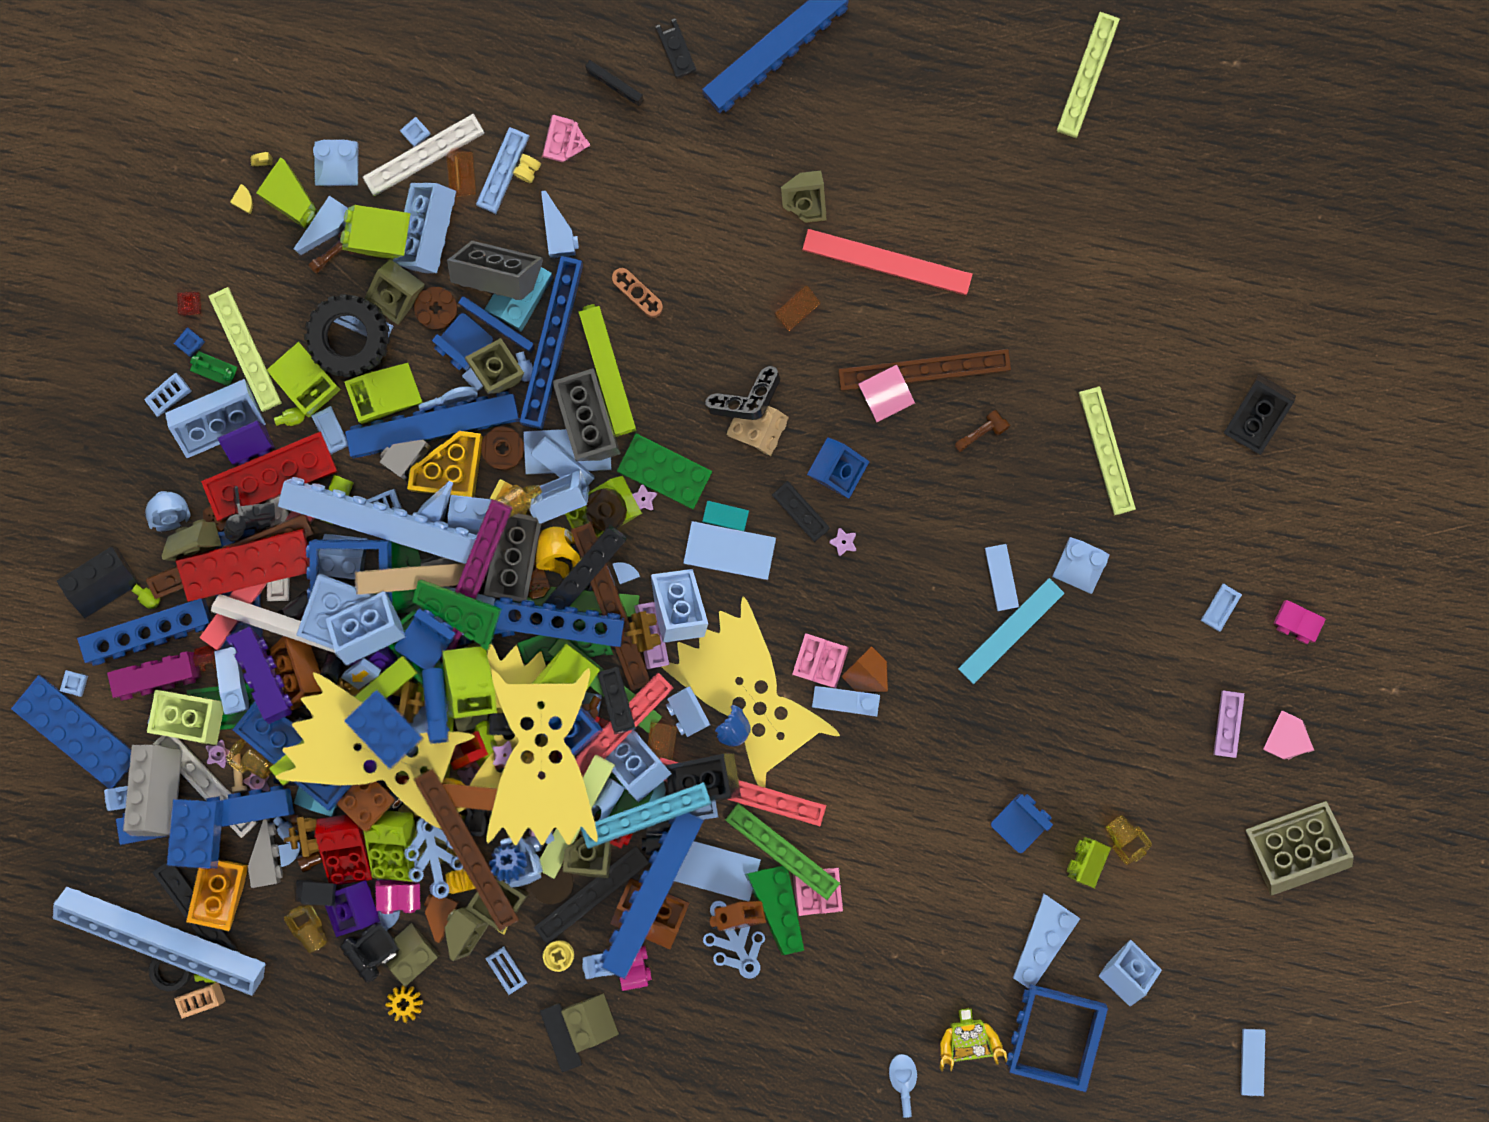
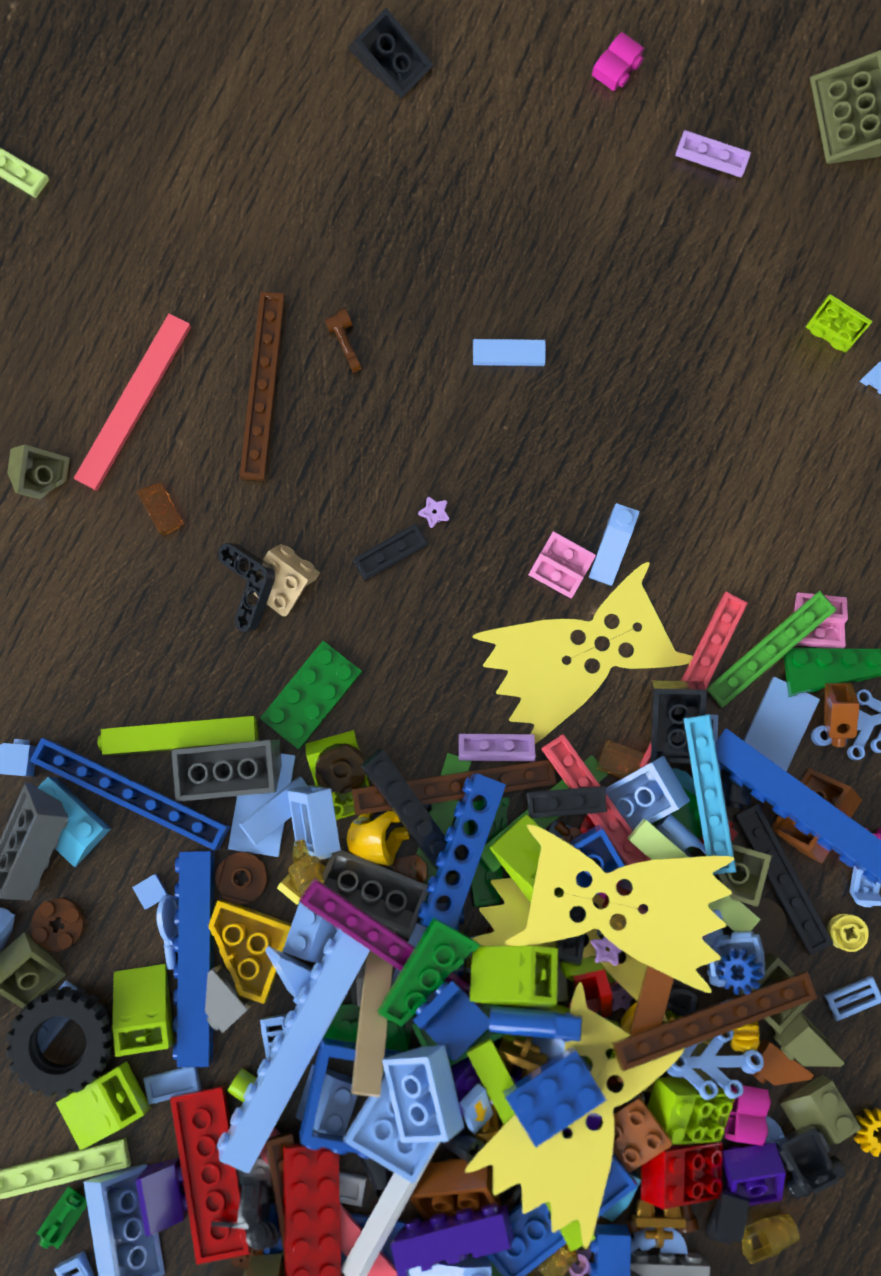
camera: 80 degrees left, 5 degrees down
(189, 342) = (23, 1242): blue tile -> none
(290, 417) = (145, 1131): lime cylinder -> none
(461, 340) = (105, 900): blue bracket -> none
(495, 367) = (143, 866): olive slope -> none
(496, 324) = (93, 855): blue tile -> none
(525, 365) = (152, 833): light blue cylinder -> none
(621, 286) = (86, 700): nougat beam -> none
(625, 572) = (417, 763): light blue tile -> none
(640, 631) = (491, 757): pearl gold hips -> none
(649, 496) = (335, 718): lavender plate -> none
(678, 606) = (469, 709): light blue slope -> none
(688, 711) = (593, 722): light blue slope -> none
(725, 516) = (377, 636): teal tile -> none
(729, 550) = (417, 640): light blue tile -> none
(734, 729) = (623, 672): blue hair -> none
(838, 467) = (349, 500): blue slope -> none
(868, 673) = (586, 515): dark orange slope -> none
(886, 393) = (278, 430): bright pink slope -> none
(1010, 630) = (569, 355): medium azure tile -> none
(1021, 822) = (781, 384): blue bracket -> none
(1081, 565) = (512, 267): light blue slope -> none
(1107, 451) = (394, 216): yellowish green tile -> none
(1122, 834) = (815, 280): clear yellow piece -> none
(1221, 607) = (587, 137): light blue tile -> none
(1288, 737) = (737, 98): bright pink slope -> none

